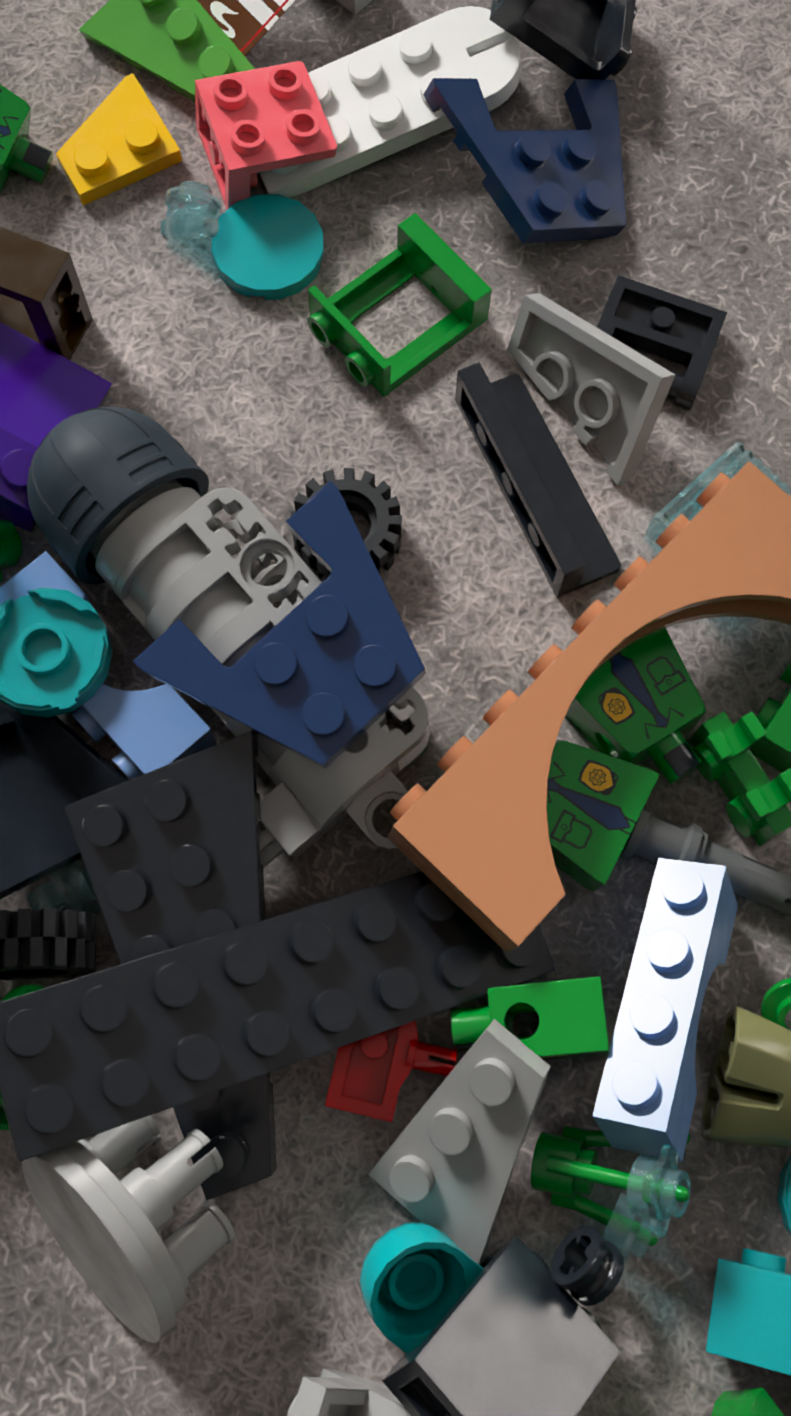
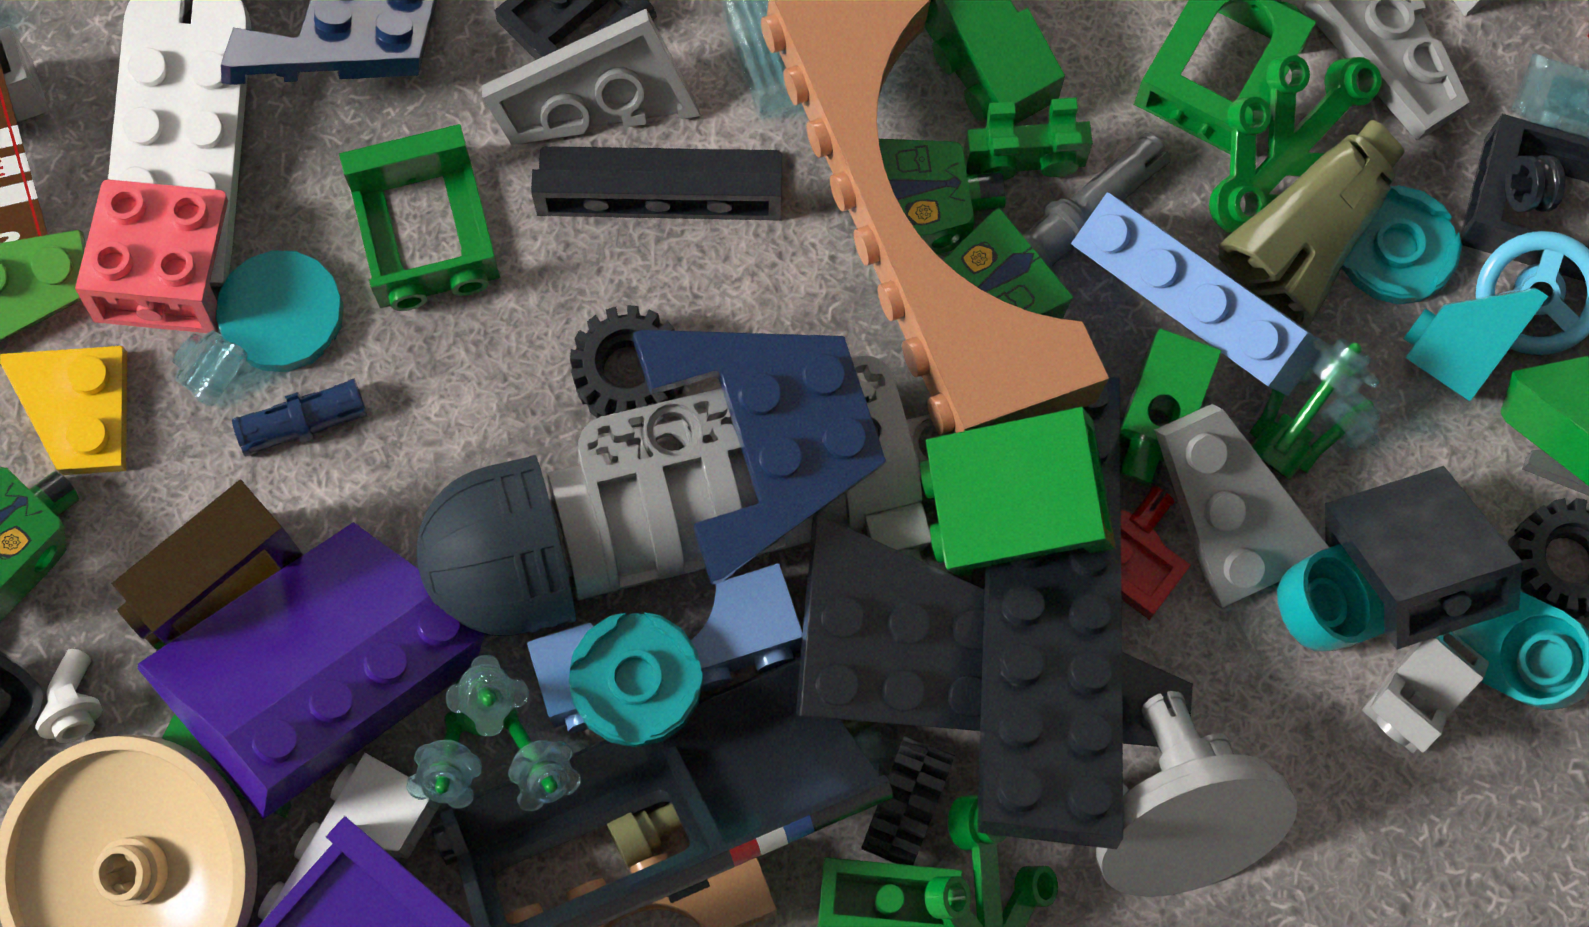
camera: 65 degrees left, 0 degrees up
(181, 301) = (299, 417): none -> dark blue pin
(358, 912) = (1017, 491): none -> green panel
(587, 1265) = (1386, 456): black bush -> none

